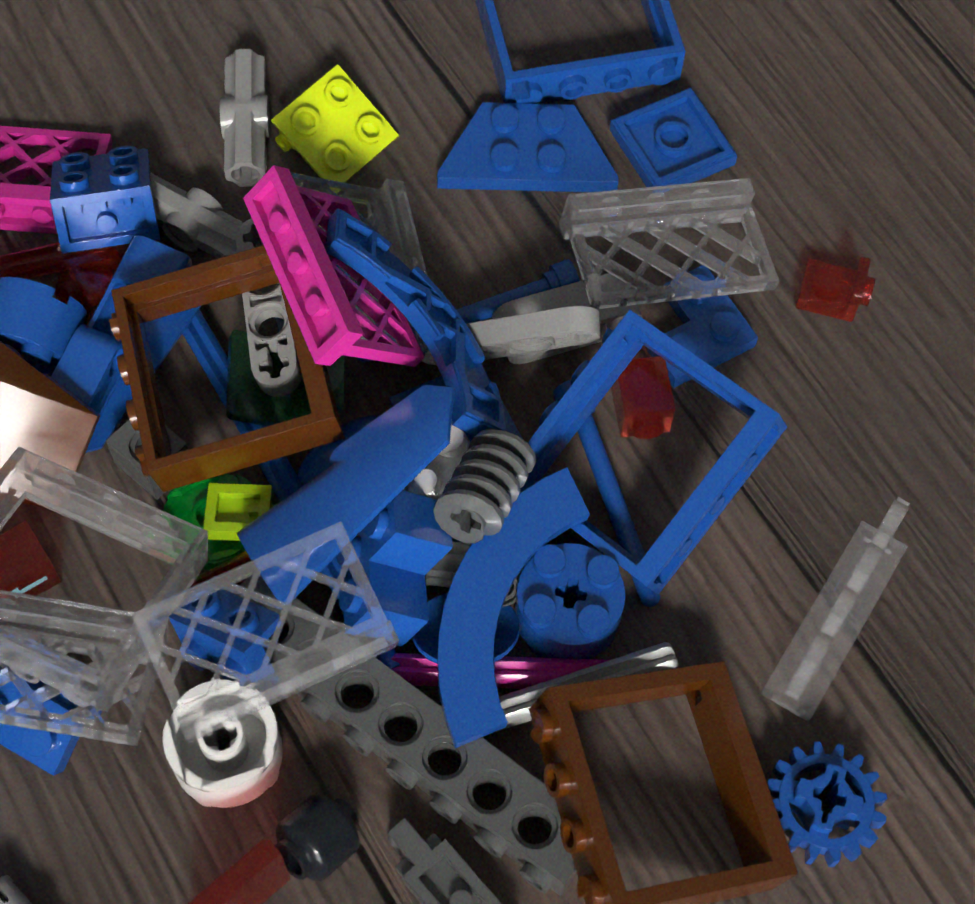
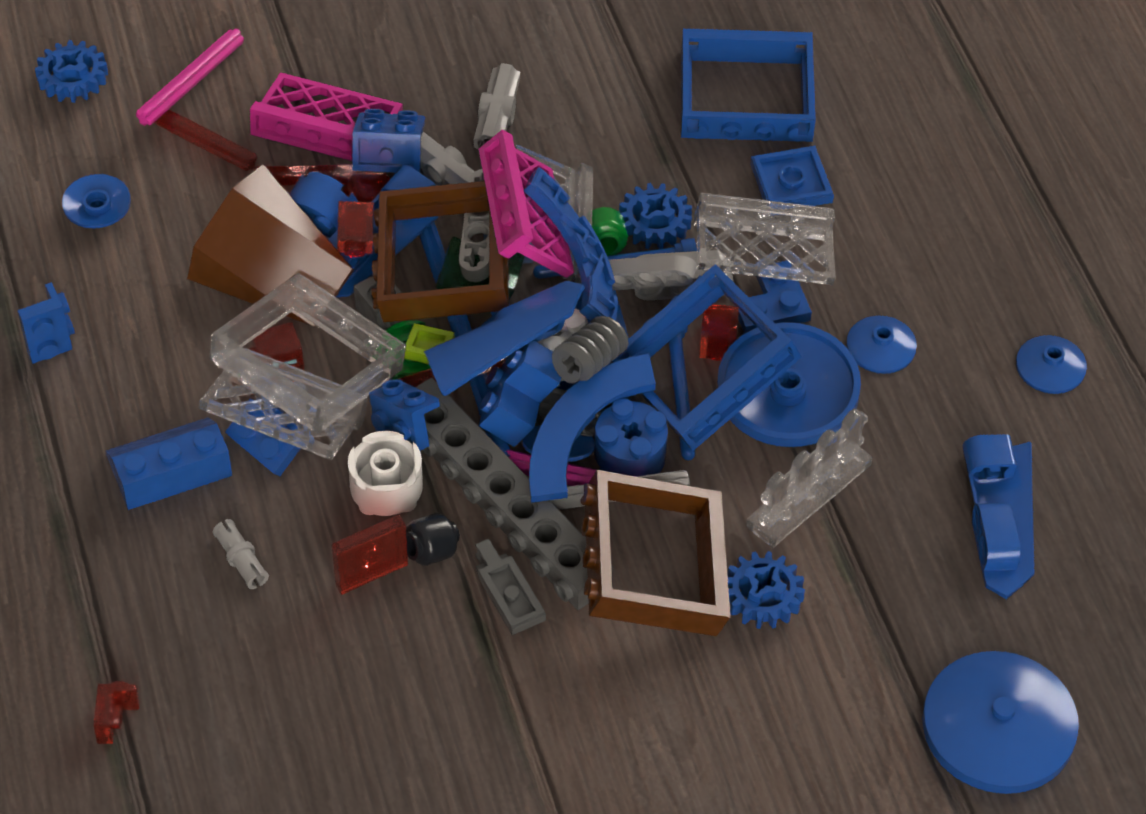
camera: 15 degrees right, 10 degrees down
(88, 354) = (355, 228): none -> clear red brick
(281, 678) = (432, 433): clear fence -> none
(333, 127) = (556, 125): neon yellow hinge -> none
(450, 270) = (610, 229): none -> green head
(506, 232) = (656, 215): none -> blue gear
(527, 151) = (685, 163): blue wing -> none
(802, 487) = (806, 397): none -> blue dish
(835, 289) = (876, 293): clear red bracket -> none
(855, 378) = (882, 354): none -> blue dish

